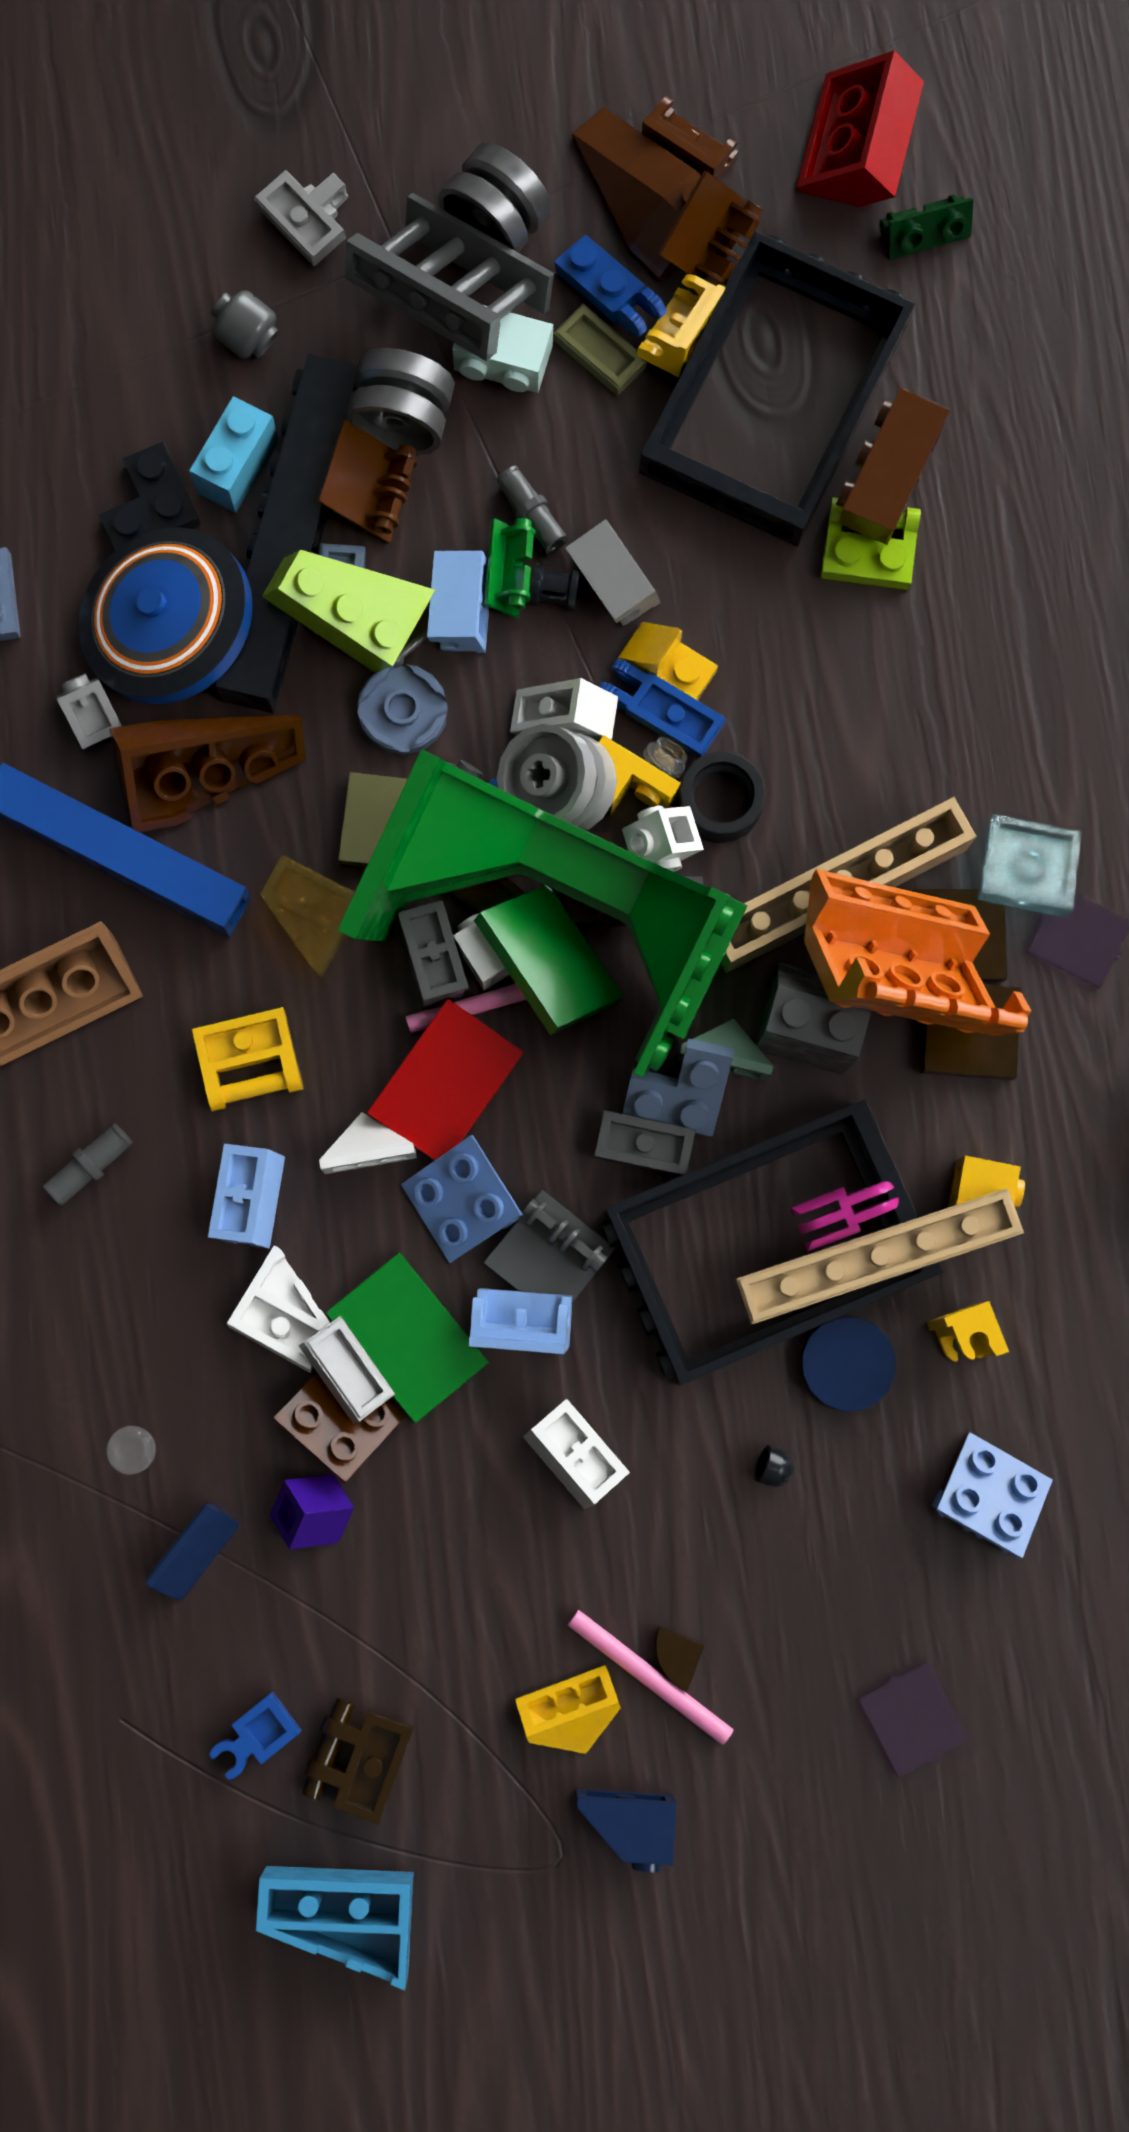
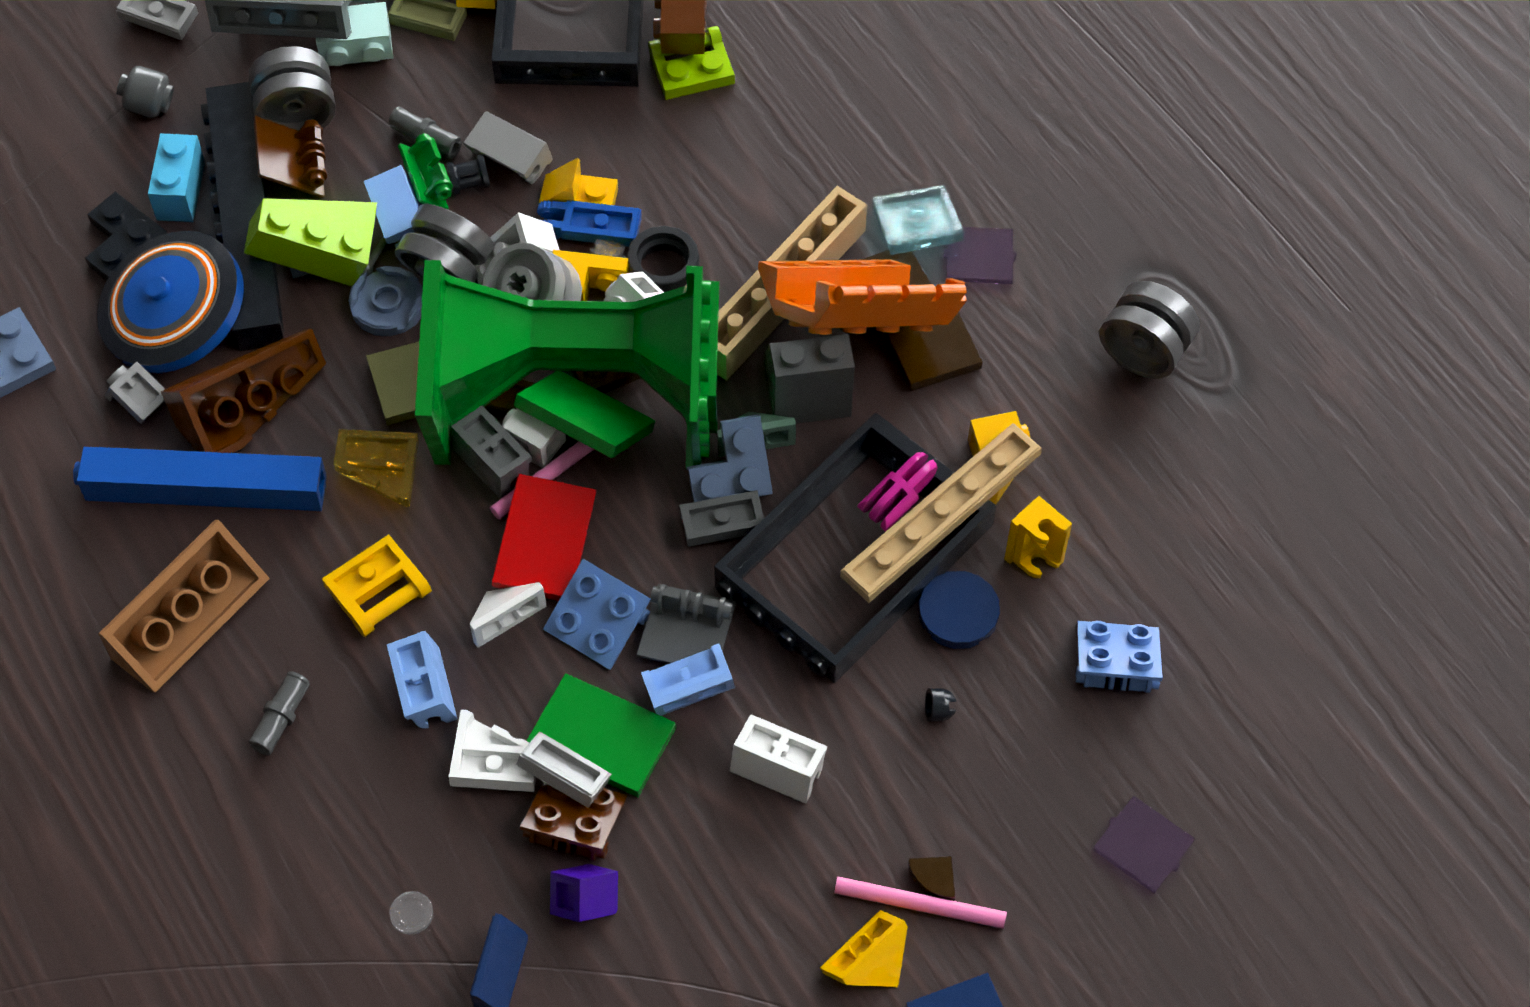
camera: 20 degrees left, 20 degrees down
(481, 686) = (446, 238): none -> flat silver wheel

